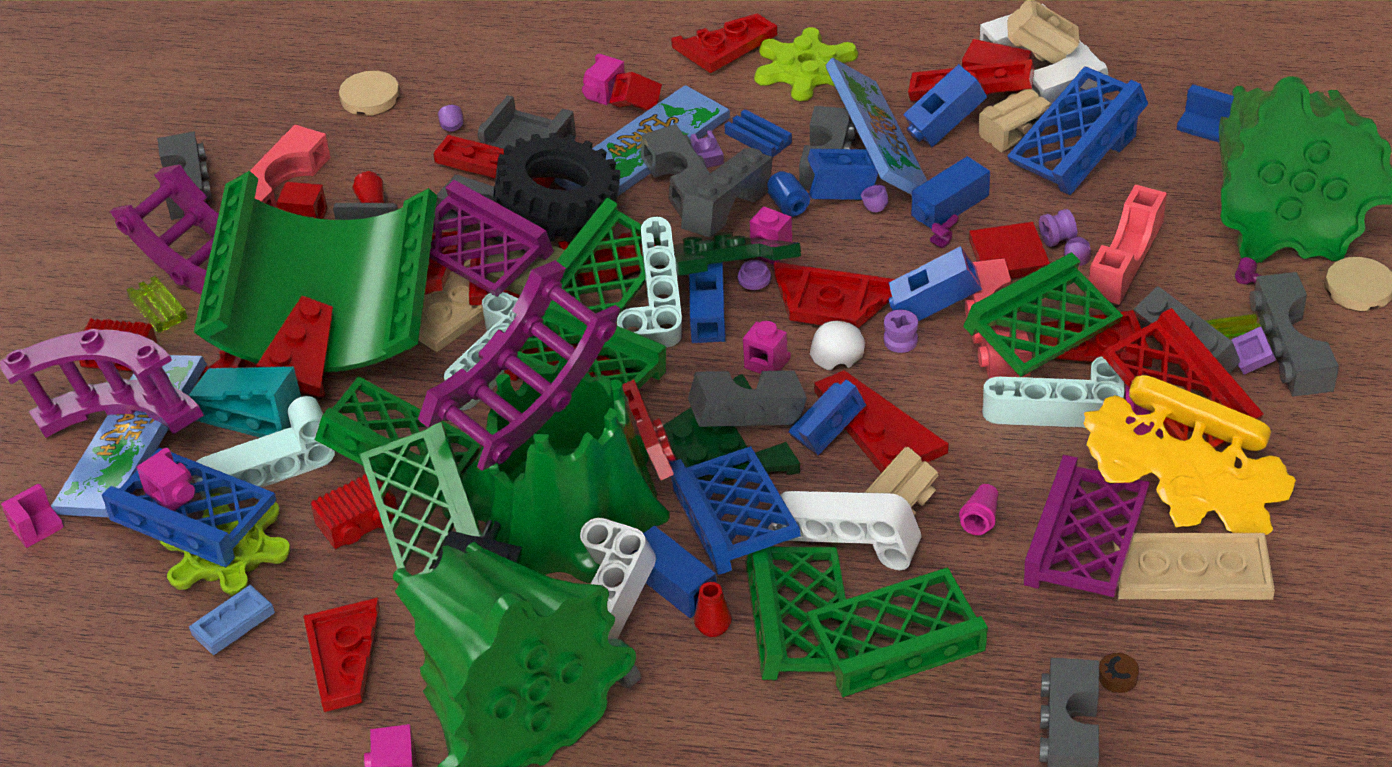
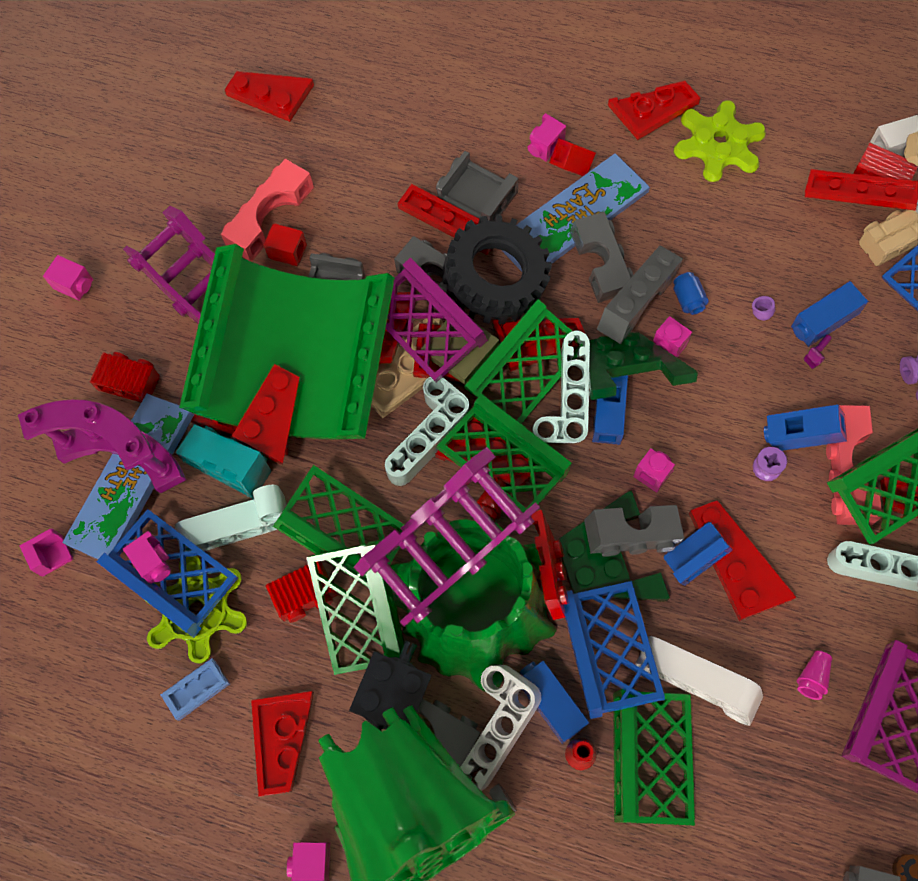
camera: 10 degrees right, 25 degrees up
(38, 261) = (68, 278): none -> dark pink brick
(148, 291) = (152, 315): clear neon green tile -> none
(188, 153) = (192, 176): dark grey arch -> none
(268, 79) = (269, 92): none -> red wing
(368, 188) = (342, 236): red cone -> none
(369, 92) = (351, 121): tan tile -> none
(450, 118) = (415, 162): medium lavender hinge -> none
(708, 149) = (625, 230): medium lavender tile -> none
(754, 275) = (652, 381): medium lavender plate -> none
(761, 130) = (673, 212): blue tile -> none
(828, 130) = (723, 265): dark grey arch -> none
(830, 295) = (716, 415): red wing -> none
(837, 344) = (714, 470): white hair -> none
(841, 173) = (740, 282): blue panel -> none
(877, 127) = (775, 235): medium blue tile -> none
(907, 478) = (750, 647): tan brick -> none
(909, 652) = (741, 827): green fence -> none
(944, 106) = (836, 218): blue brick -> none
(1015, 243) = (872, 383): red tile -> none

